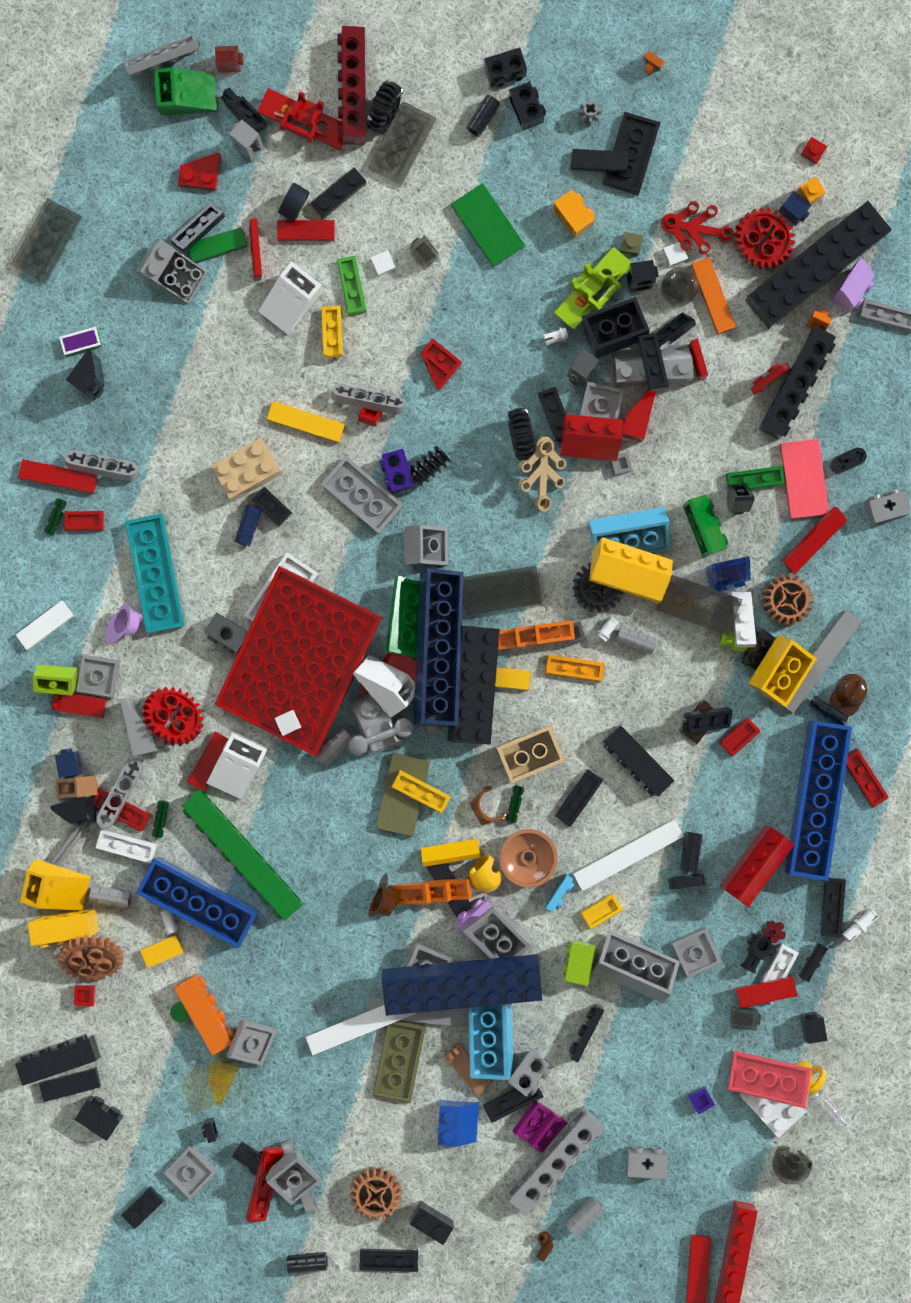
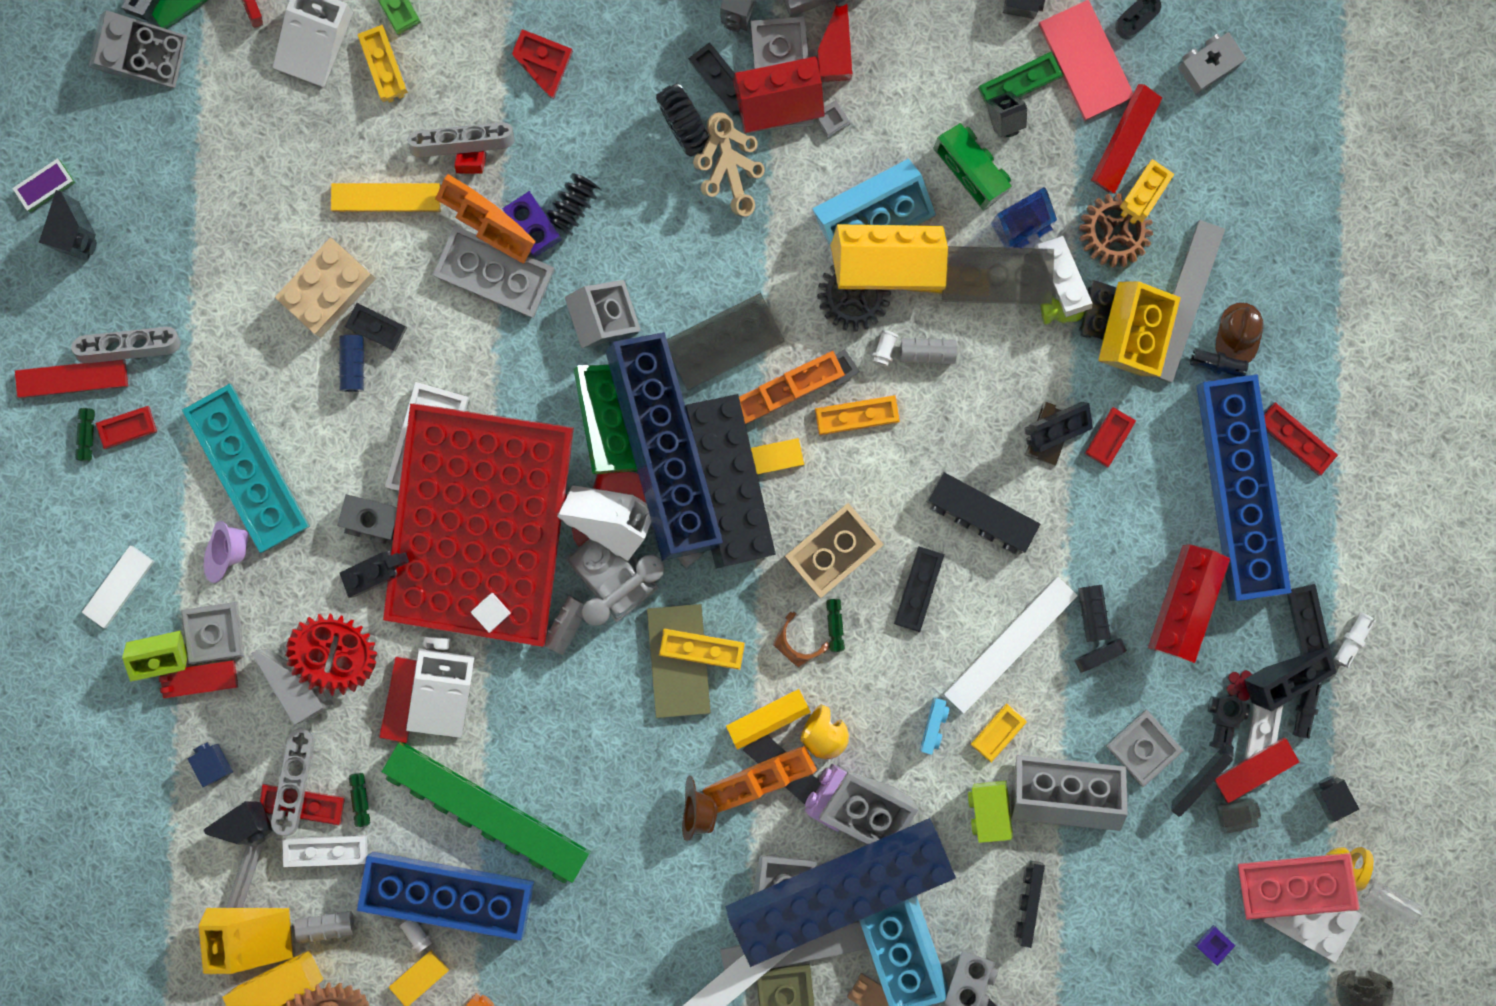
camera: 15 degrees left, 0 degrees up
(76, 787) = (231, 792): medium nougat slope -> none
(217, 670) = (372, 572): none -> black hinge
(245, 731) = (437, 643): none -> white tile
(367, 455) = (485, 217): none -> orange slope
(533, 871) = (881, 712): nougat dish -> none
(728, 987) = (1202, 780): none -> black tile
(807, 938) = (1288, 679): none -> black slope
(816, 580) = (1146, 191): none -> yellow hinge

